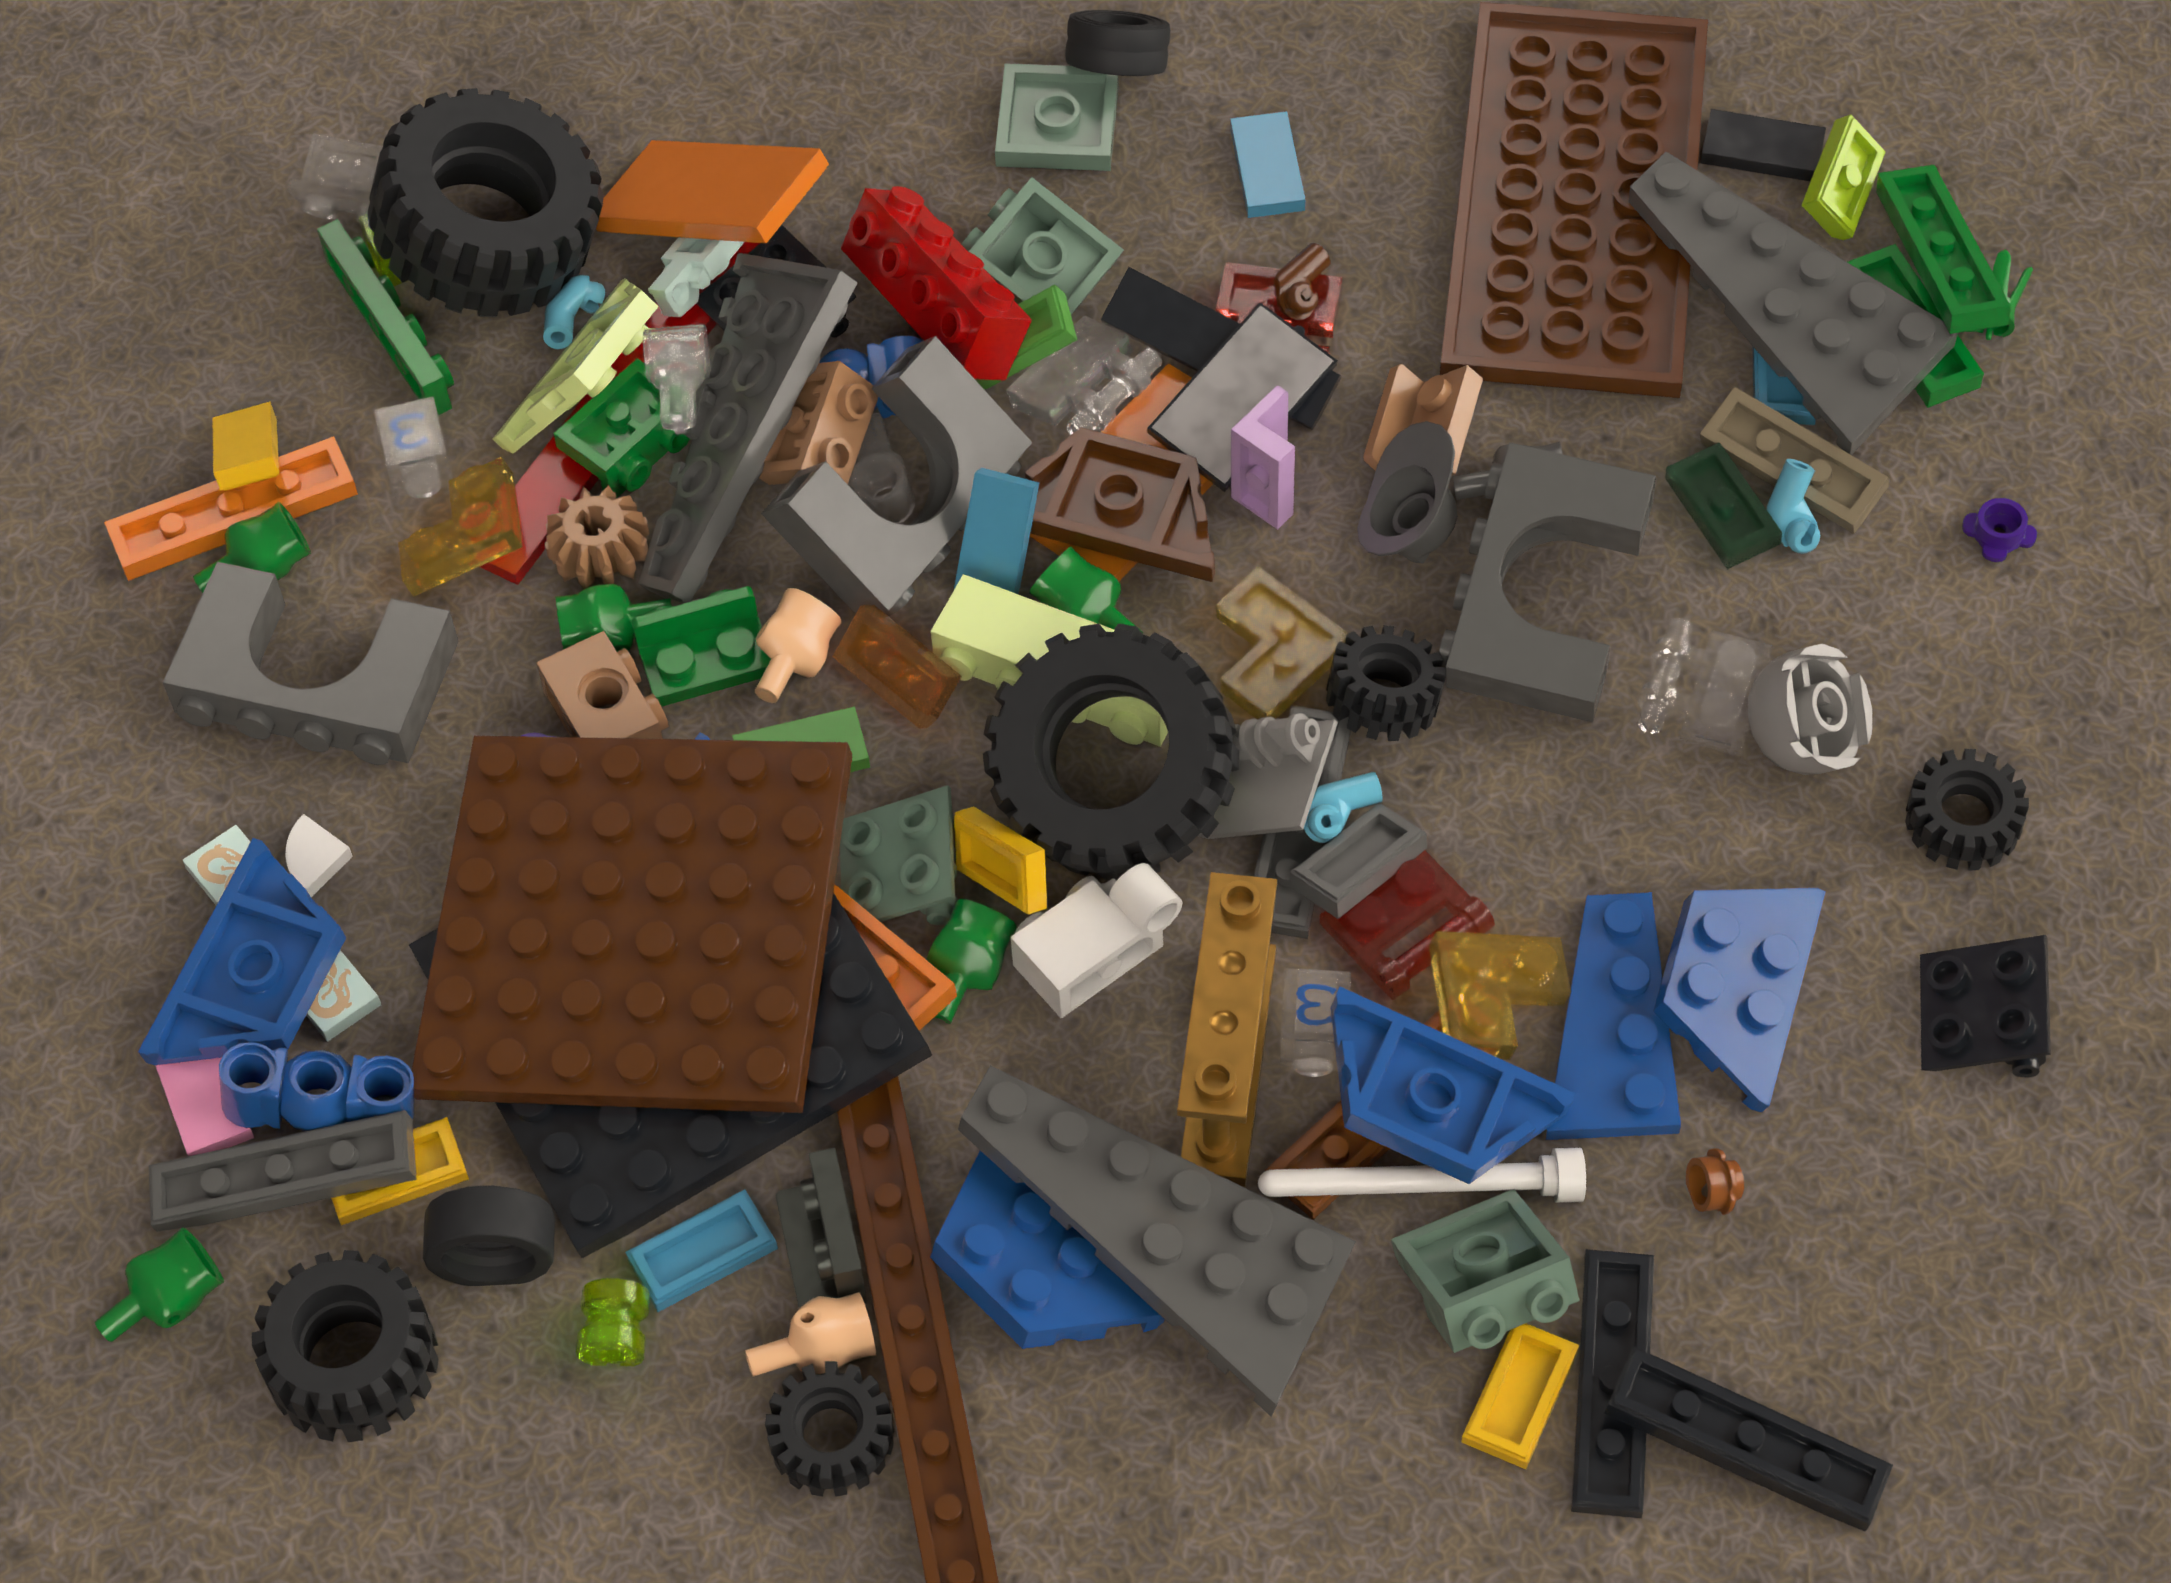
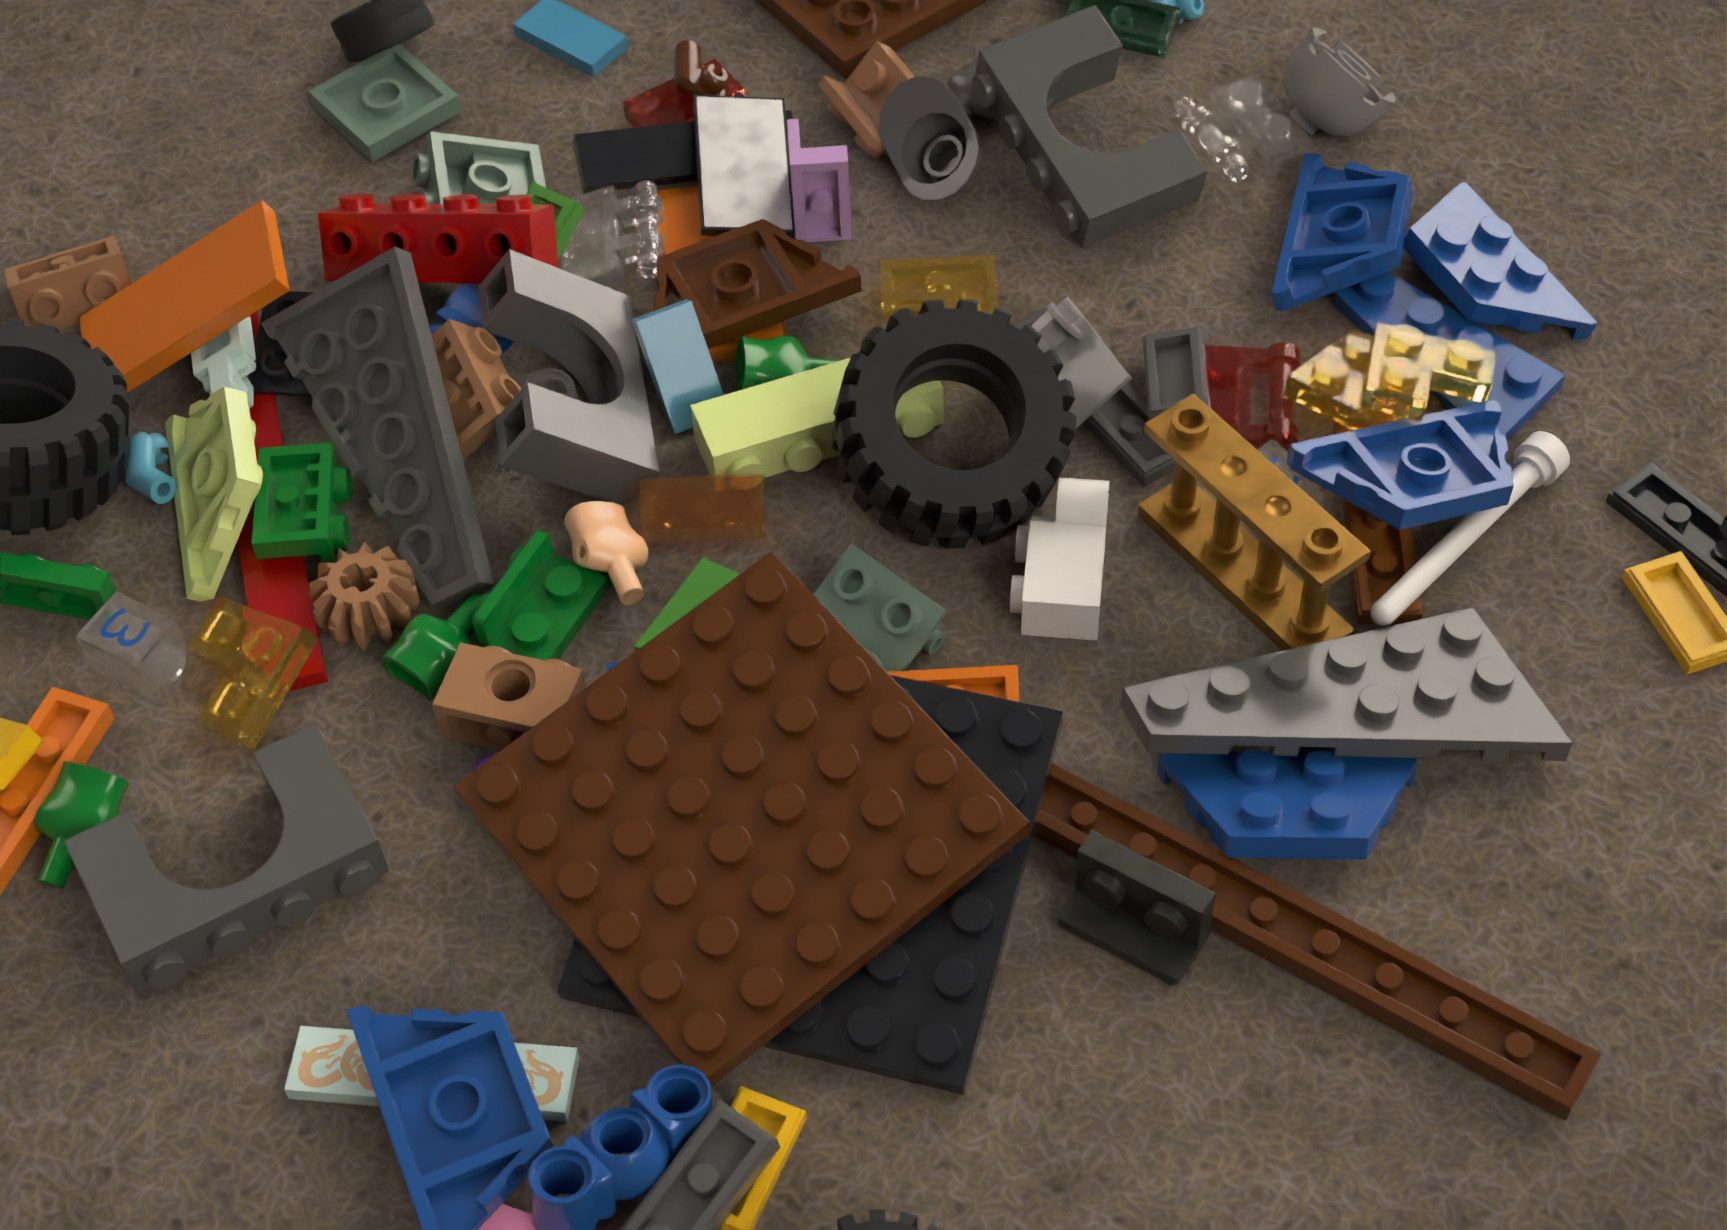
camera: 45 degrees left, 5 degrees down
(314, 854) = (390, 989): white tile -> none
(488, 1236) = (899, 1129): black tyre -> none
(613, 1322) = (1057, 1111): clear neon green wheel -> none
(669, 103) = (67, 283): none -> medium nougat bracket
(677, 366) = (309, 420): clear axle -> none
(701, 1250) = (1048, 1007): dark azure tile -> none
(819, 1333) = (1222, 978): light nougat piece -> none
(821, 1392) = (1310, 1001): black tyre -> none
(970, 949) = (985, 635): green piece -> none
(1000, 860) = (953, 557): yellow tile -> none
(1336, 801) = (1122, 342): medium azure arm -> none
(1380, 706) = (1054, 263): black tyre -> none
(1487, 1271) = (1581, 549): sand green plate -> none
(1542, 1002) = (1409, 364): none -> clear yellow plate
(1652, 844) = (1340, 230): none -> blue wing
(1723, 1180) = (1612, 389): dark orange plate -> none
(1973, 778) = (1477, 97): black tyre -> none
(1986, 1006) = (1639, 170): black hinge -> none

